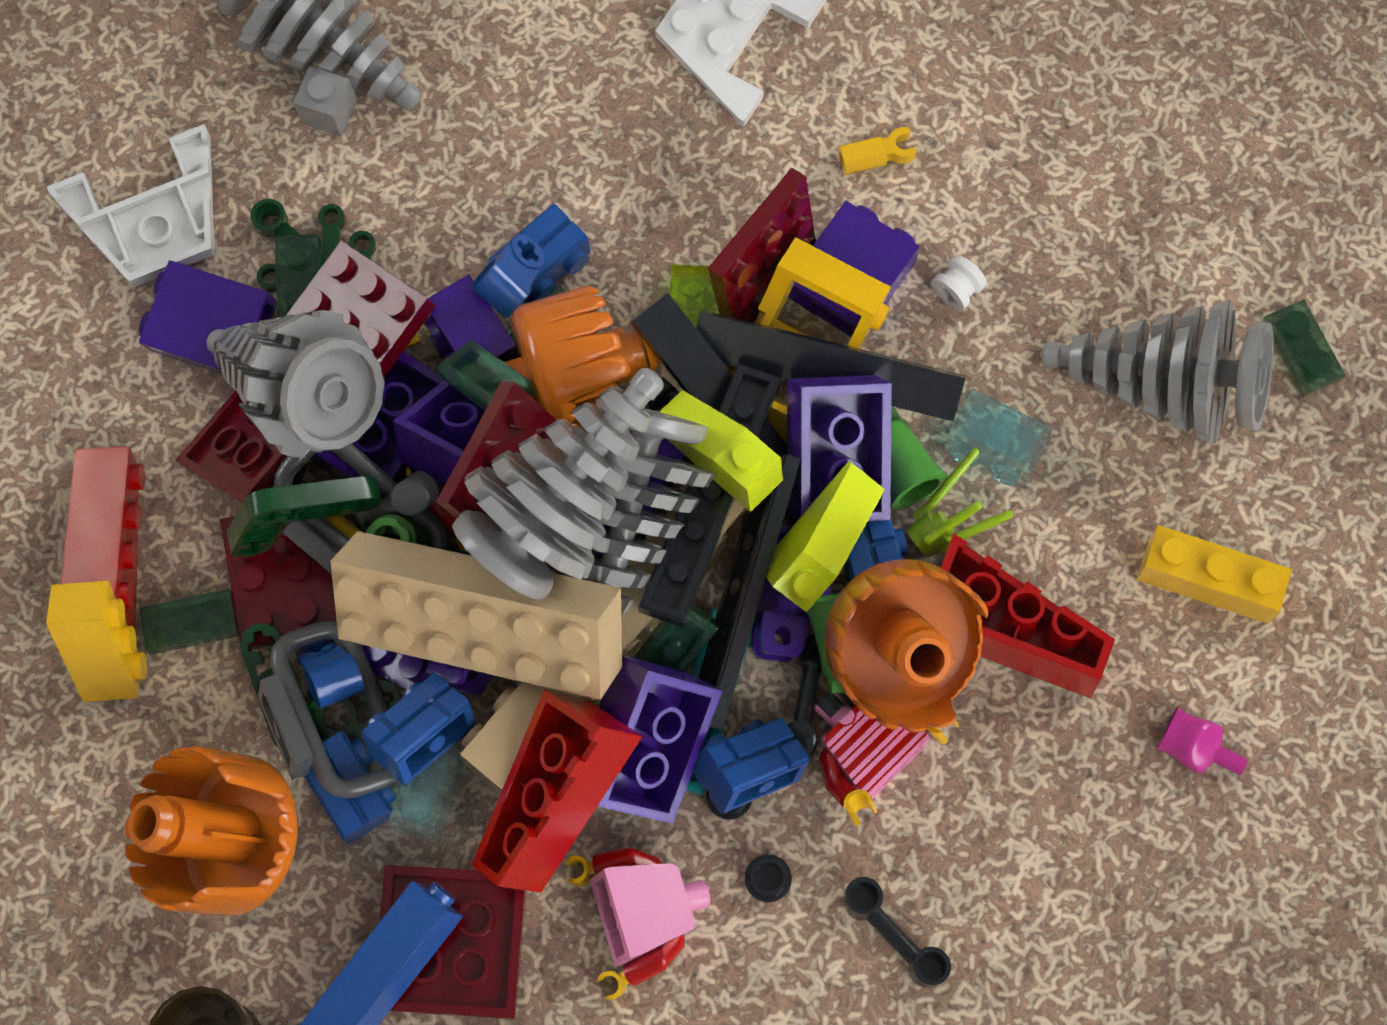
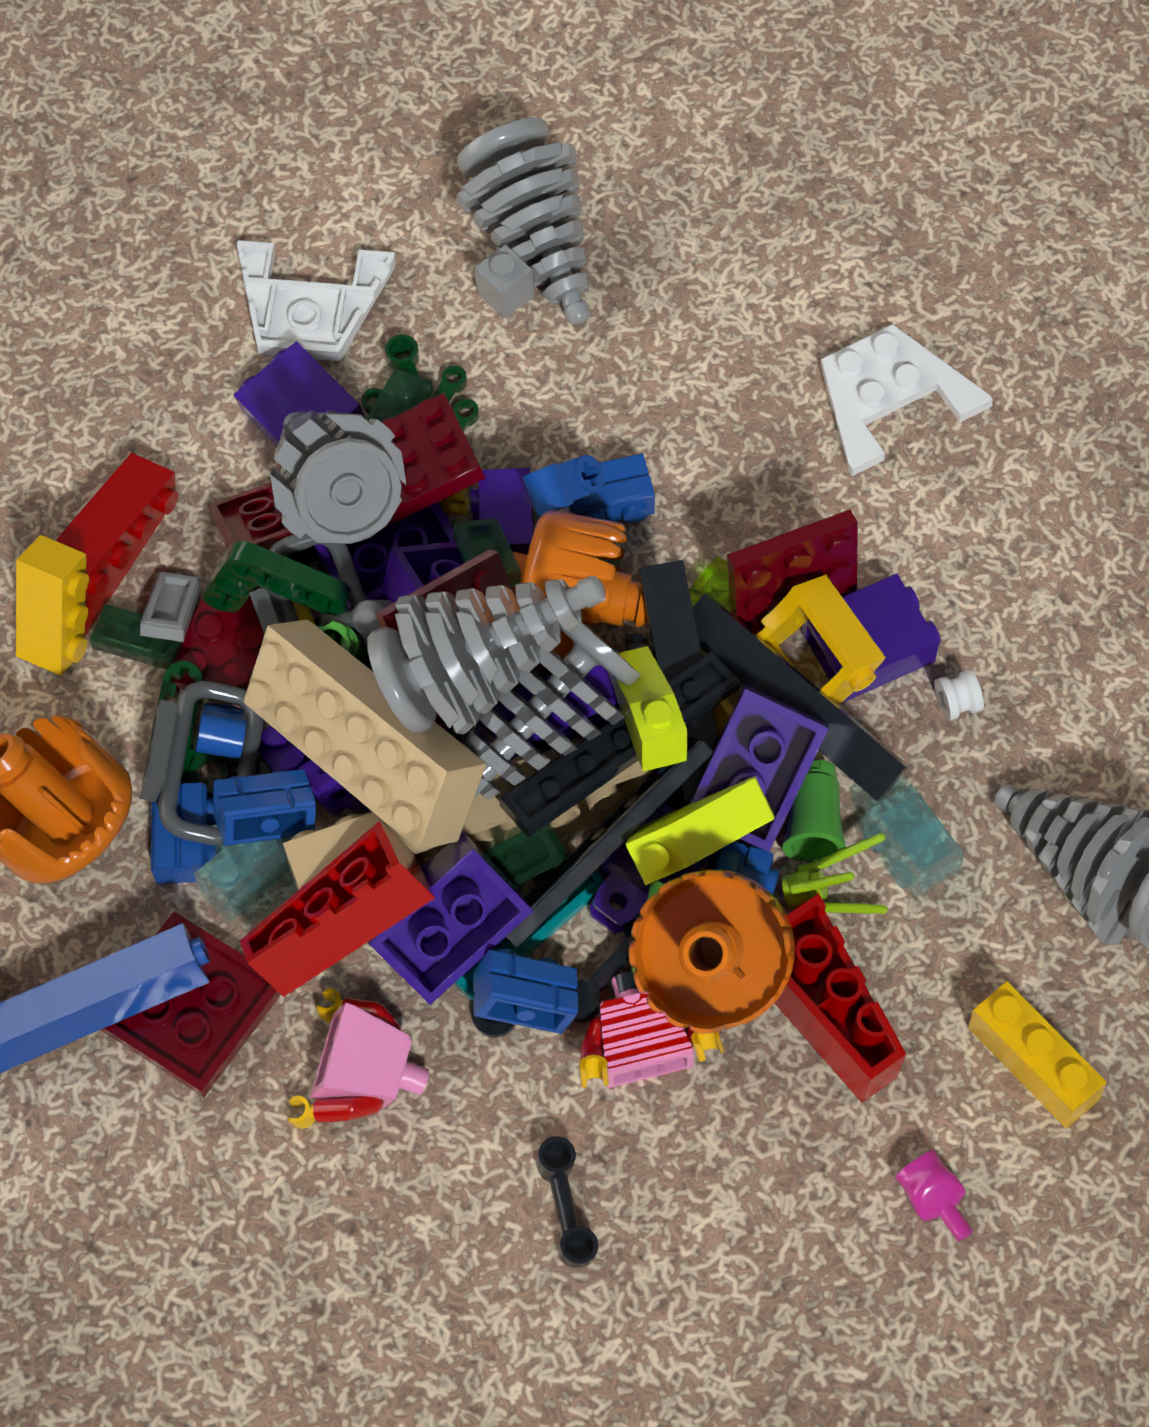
camera: 30 degrees right, 10 degrees down
(203, 577) = (170, 606): none -> light grey tile
(768, 878) = (486, 1099): black plate -> none
(875, 152) = (954, 552): yellow bar -> none

